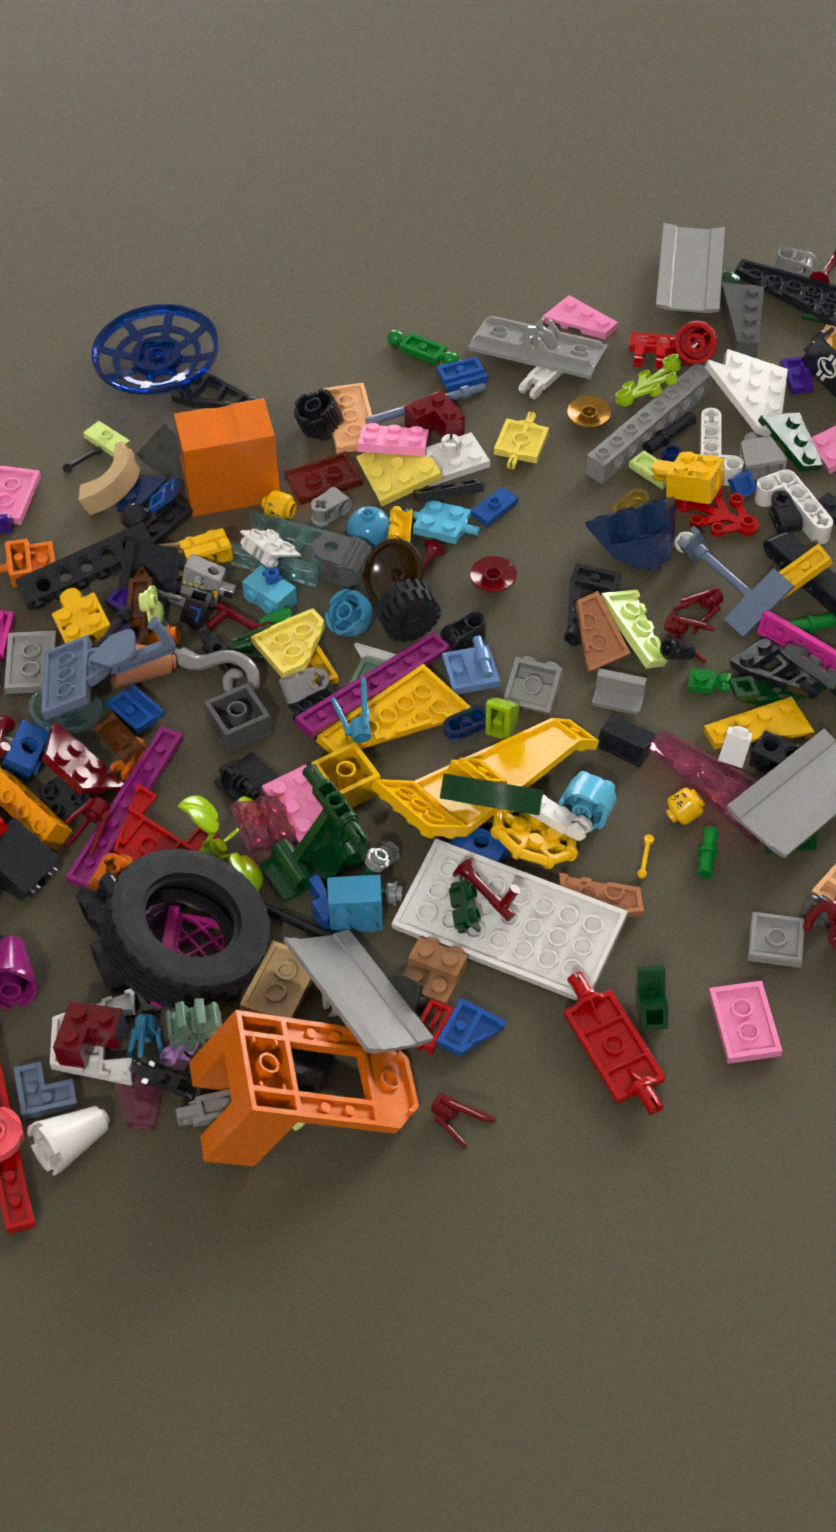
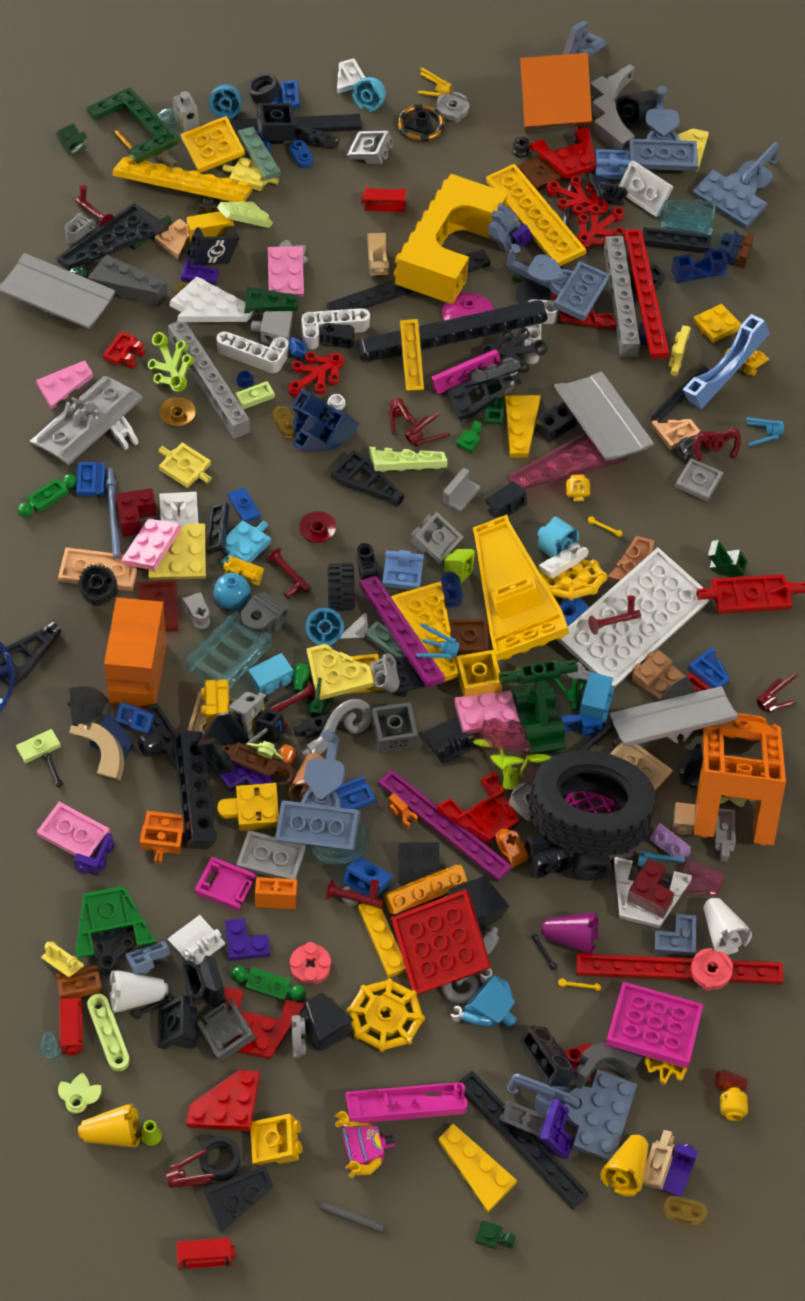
camera: 75 degrees left, 5 degrees up
(77, 764) = (403, 841): dark red wing -> none
(95, 810) = (450, 842): dark red plant -> none
(118, 737) = (389, 807): reddish brown plate -> none
(121, 617) = (270, 773): black bar -> none
(153, 1071) = (697, 854): black hinge -> none
(192, 1024) = (675, 817): sand green gear -> none
(267, 546) = (239, 652): white hinge -> none
(272, 576) = (266, 663): blue piece -> none
(279, 505) = (180, 643): yellow head -> none
(388, 563) = (312, 585): dark brown dish -> none
(407, 758) = (470, 634): none -> reddish brown tile
(464, 895) = (629, 637): dark green hinge -> none
(491, 794) = (541, 589): dark green slope -> none
(599, 633) = (408, 481): nougat wing -> none
(663, 437) = (227, 376): black pin -> none
(675, 649) = (440, 443): black cone -> none
(691, 476) = (286, 372): yellow brick -> none
(694, 342) = (153, 316): red brick -> none
(707, 852) = (617, 490): green pin -> none
(735, 746) = (541, 440): white brick -> none
(745, 1022) = (755, 519): bright pink plate -> none
(756, 600) = (418, 380): sand blue piece -> none
(813, 623) = (445, 359): green pin -> none

